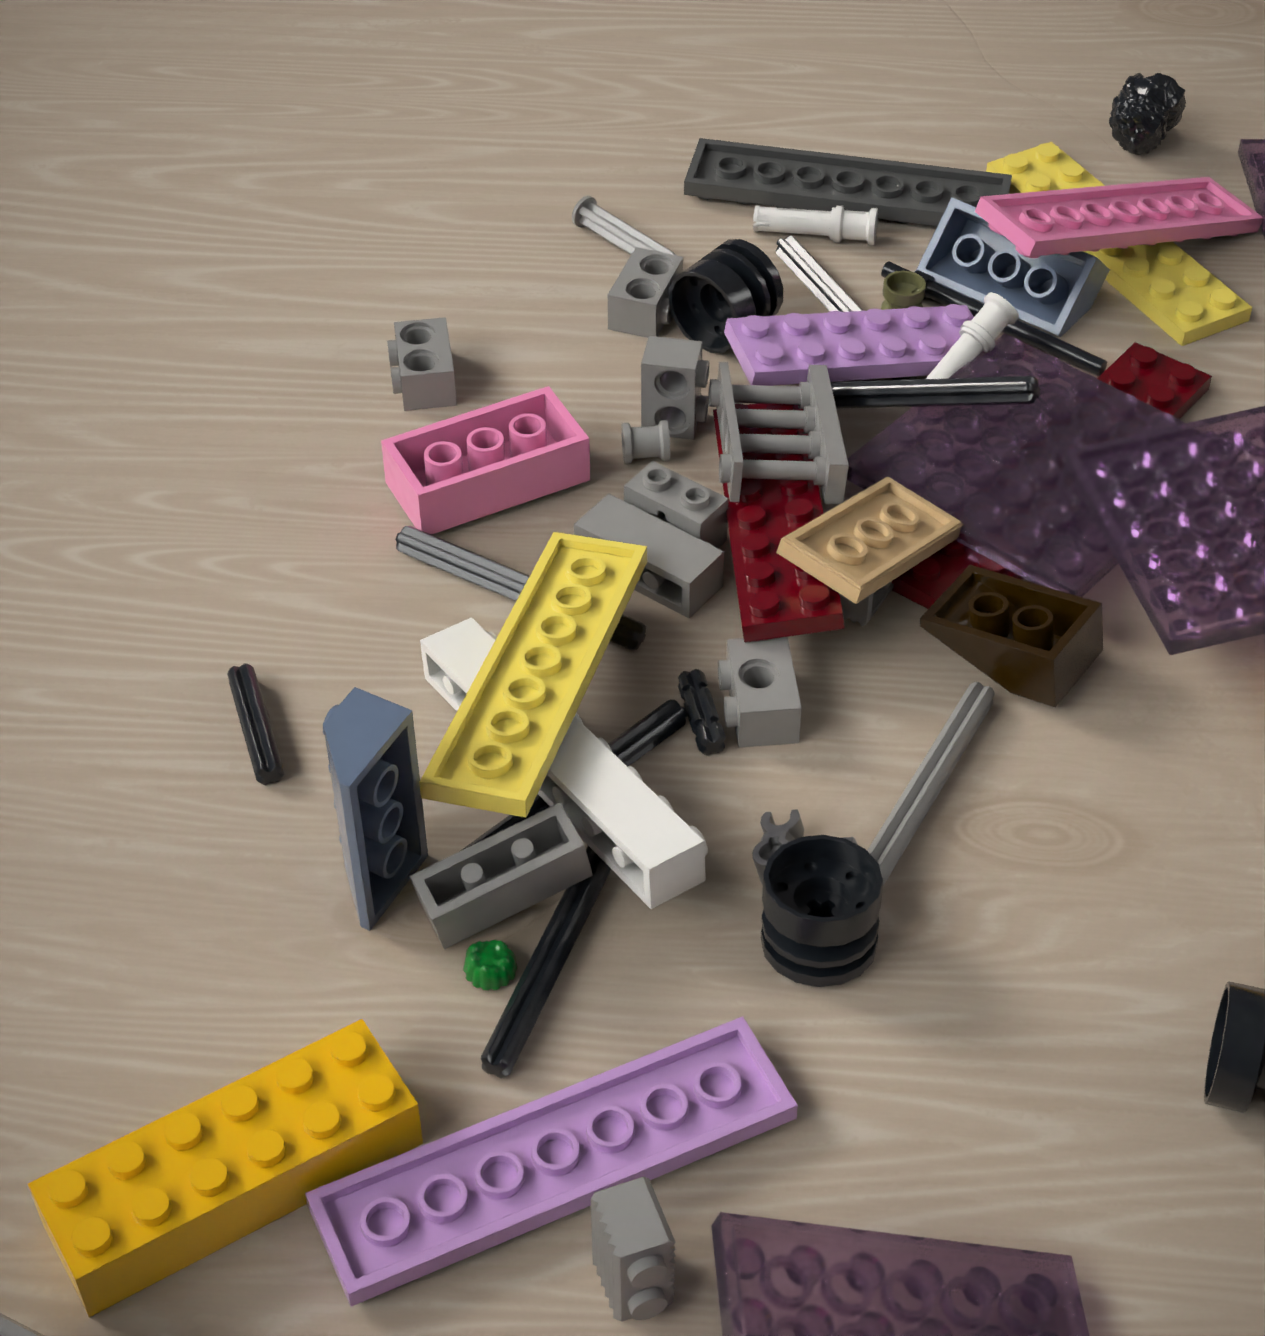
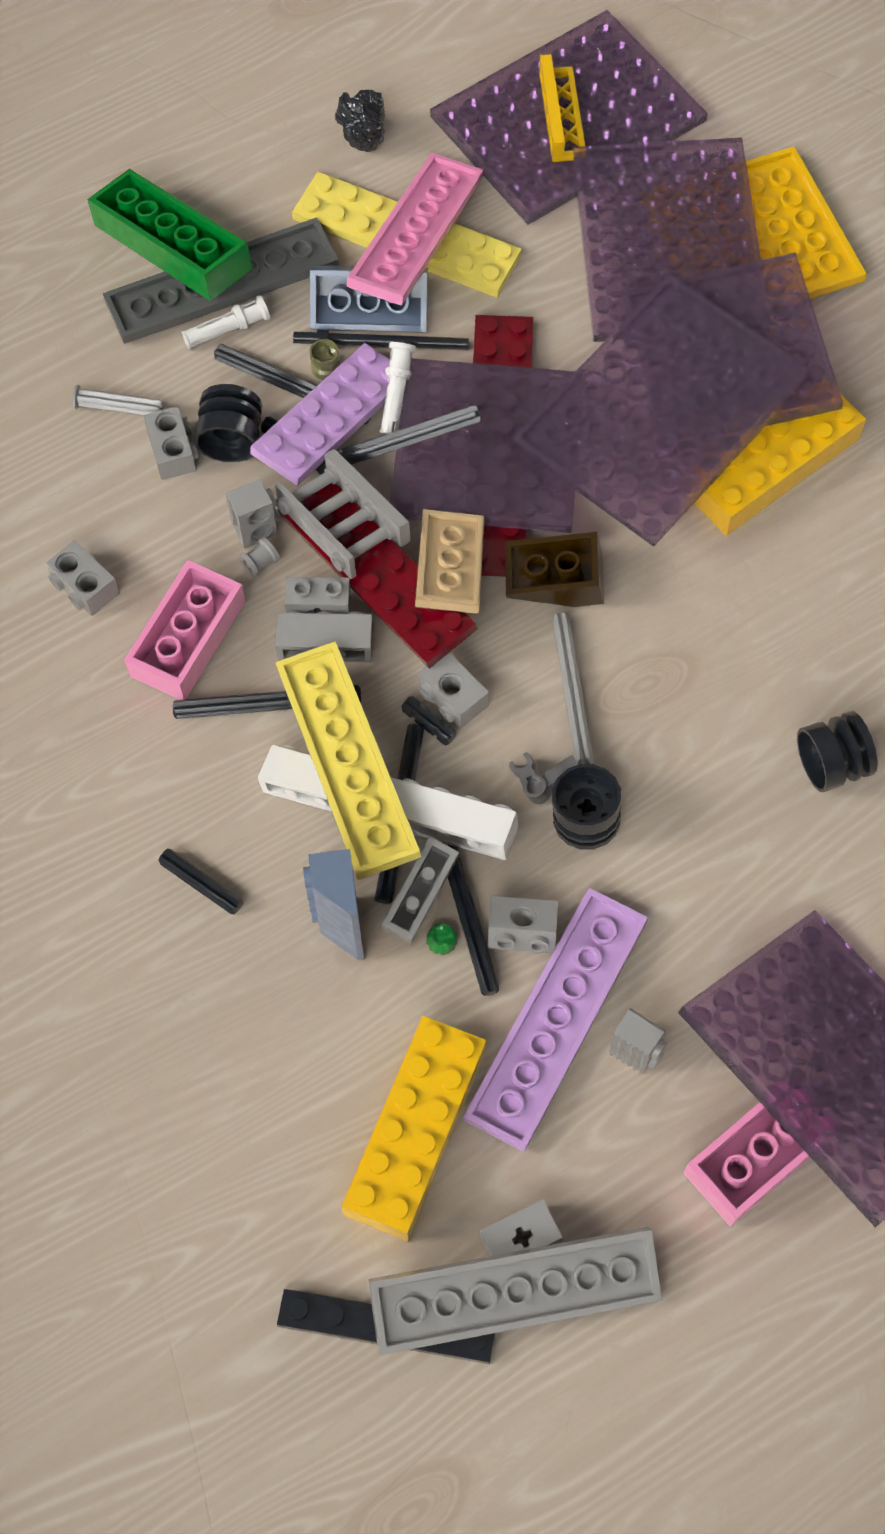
camera: 35 degrees left, 20 degrees up
(608, 1003) = (522, 924): none -> light grey brick
(821, 113) = (170, 234): none -> green brick

